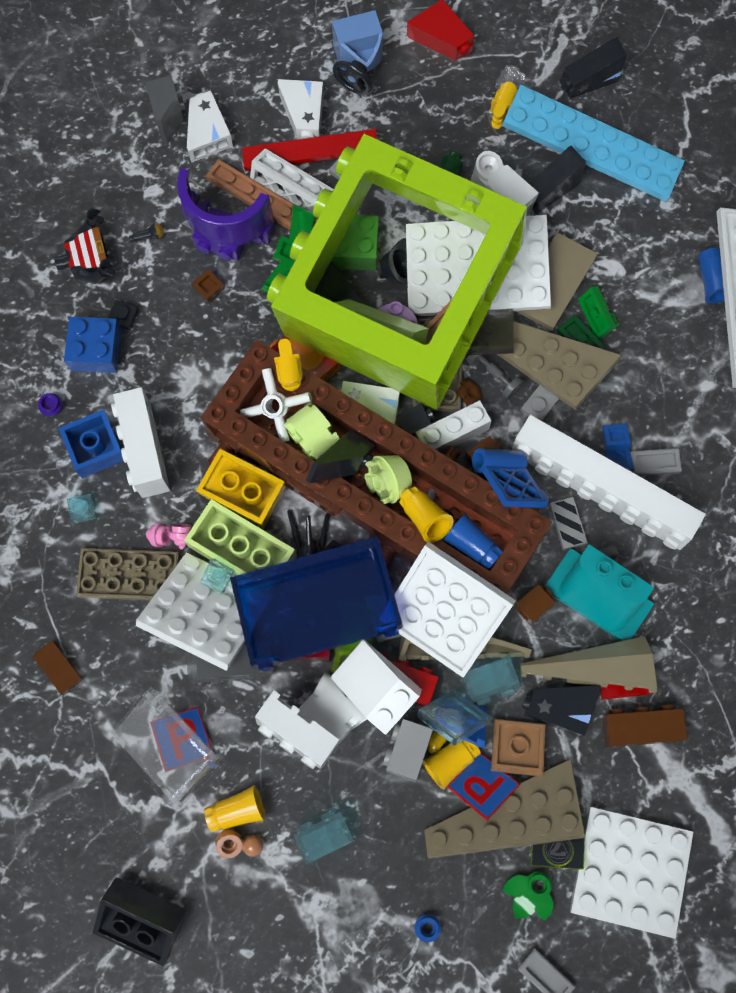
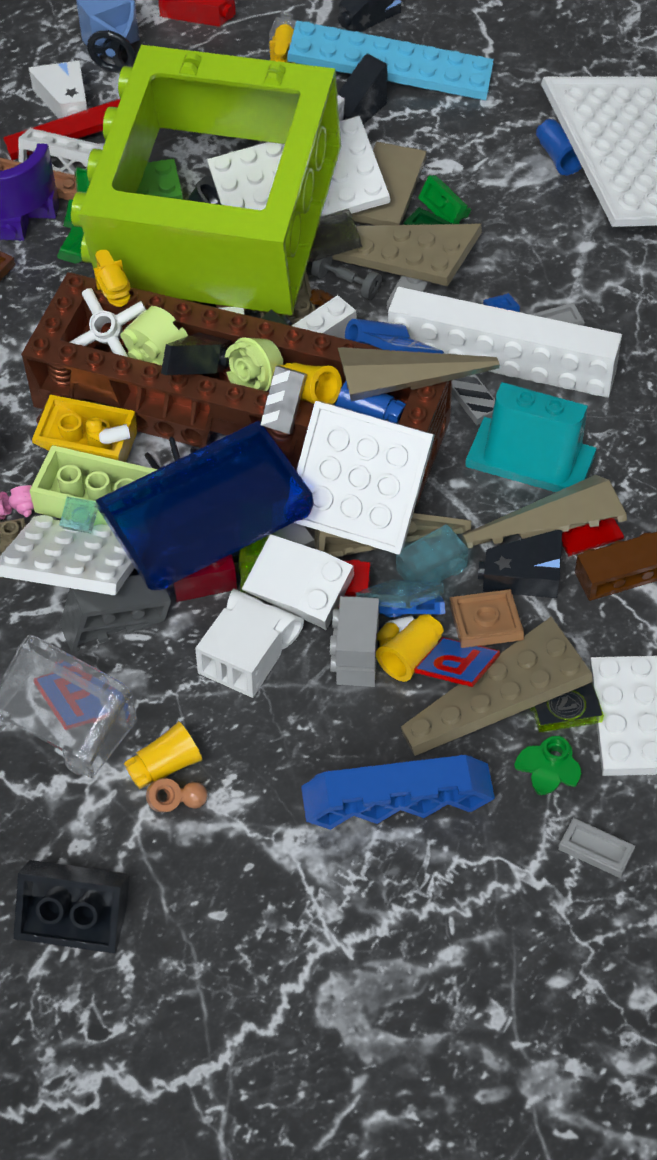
camera: 15 degrees left, 20 degrees down
(253, 503) = (106, 435): none -> arm
(295, 731) = (213, 635): white wedge -> none
(323, 837) = (280, 760): clear light blue brick -> none
(400, 531) = (283, 399): none -> flat silver tile
(413, 895) = (407, 786): none -> blue brick
(434, 934) = (439, 820): blue plate -> none
(489, 523) = (383, 371): none -> dark tan wedge
(535, 604) = (460, 476): reddish brown brick -> none

